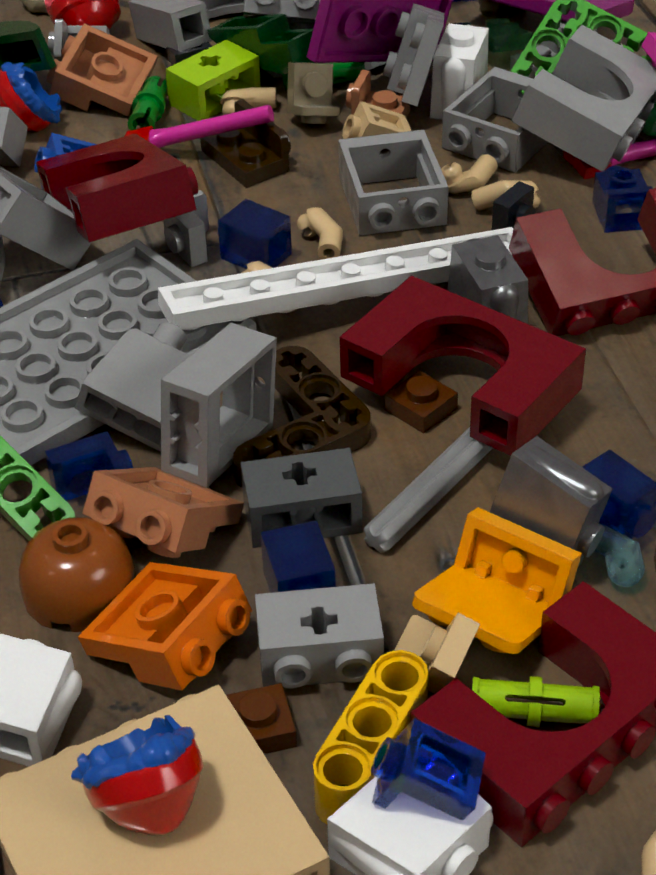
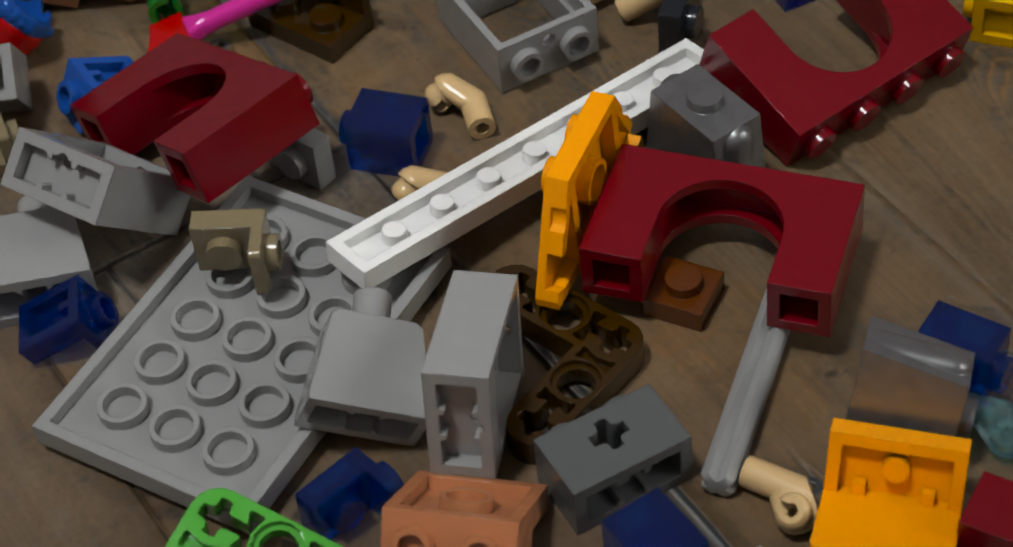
camera: 15 degrees left, 5 degrees up
(97, 274) = (237, 241): none -> dark tan bracket
(356, 288) = (572, 190): none -> light orange wing
(426, 556) = (788, 493): none -> tan arm

